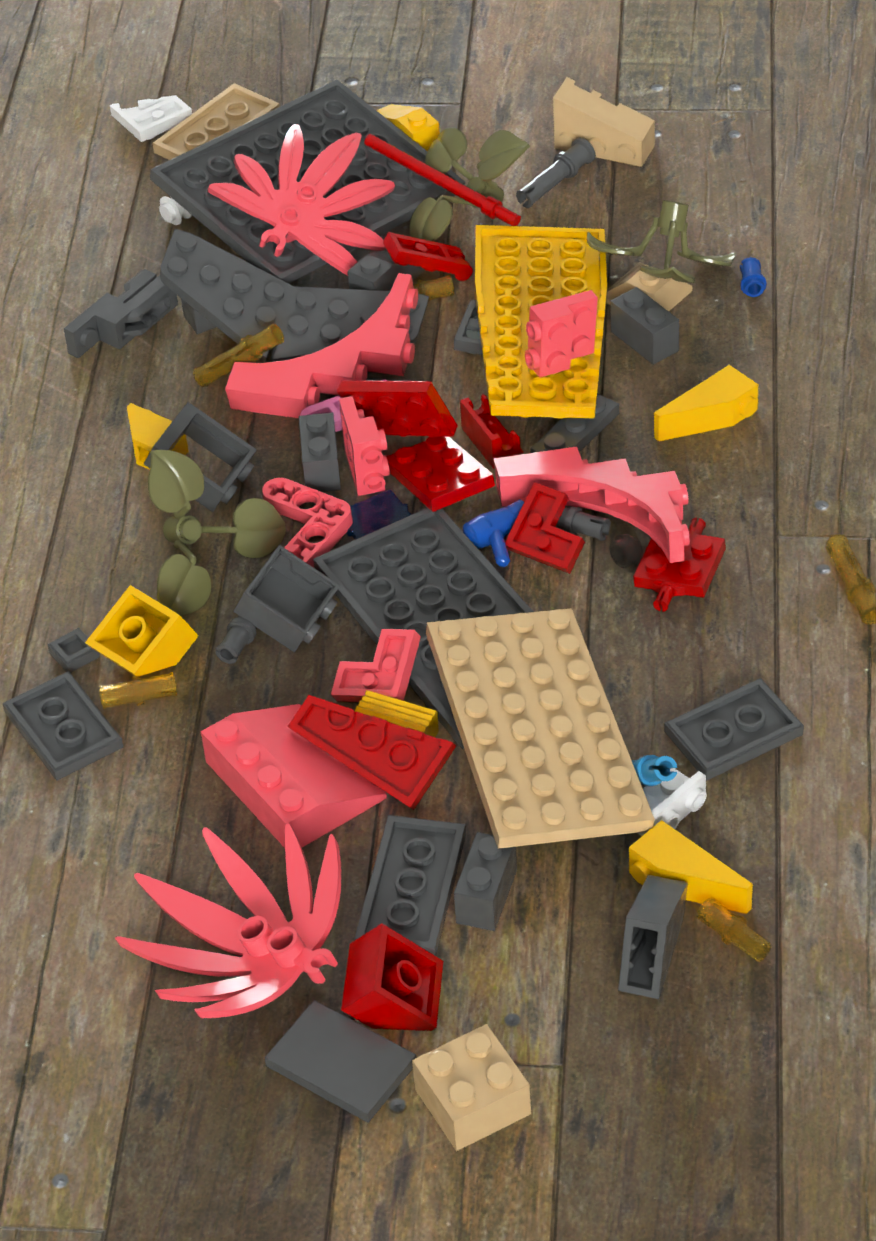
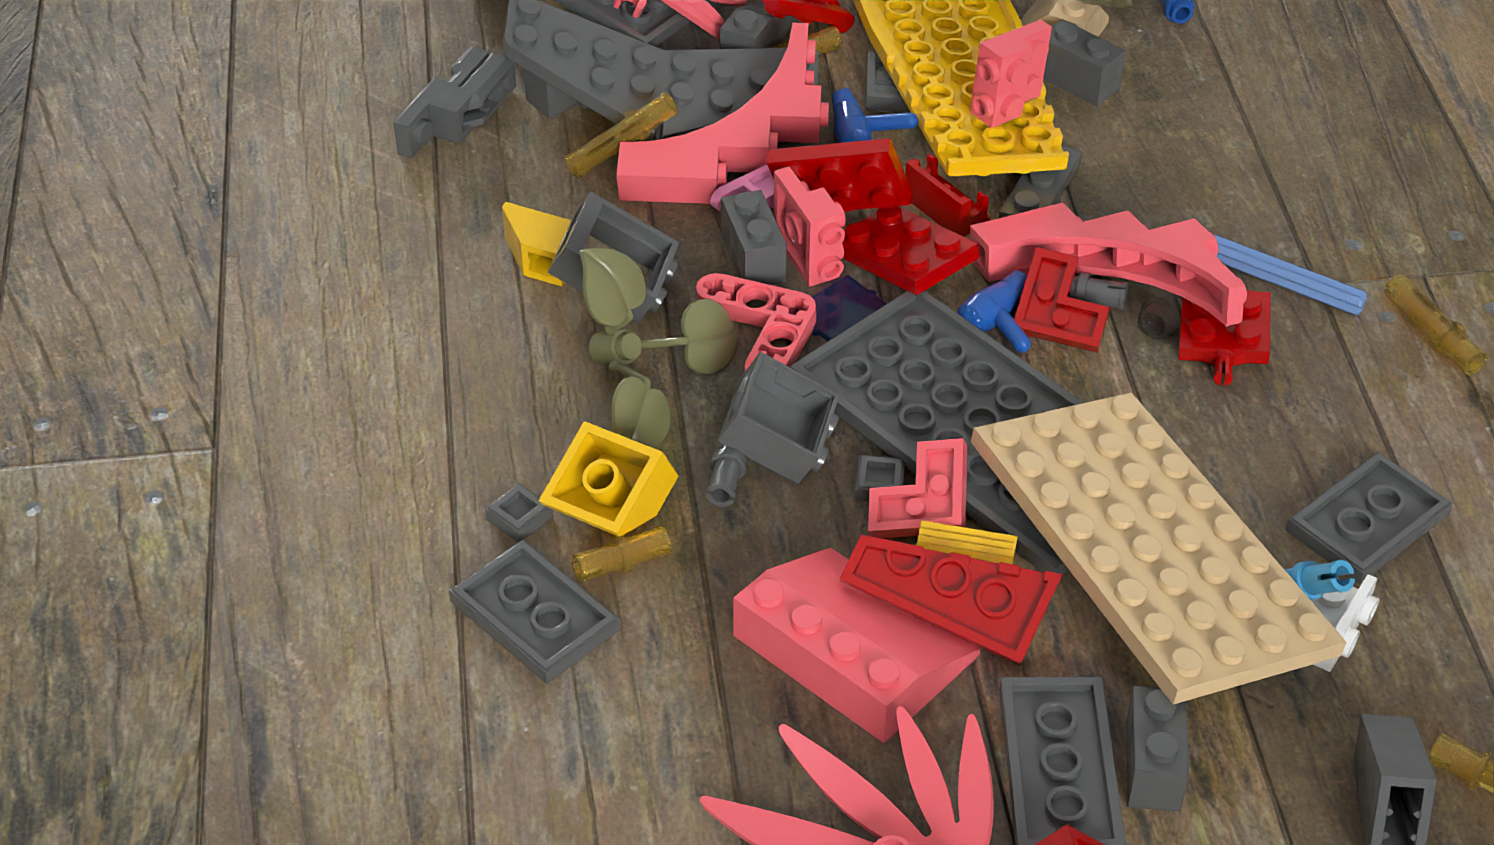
camera: 15 degrees left, 0 degrees up
(355, 650) = (877, 472): none -> dark grey tile
(436, 364) = (853, 125): none -> blue piece
(673, 856) = (1377, 686): yellow slope -> none
(709, 406) = (1189, 144): yellow slope -> none
(748, 525) = (1291, 276): none -> medium blue axle

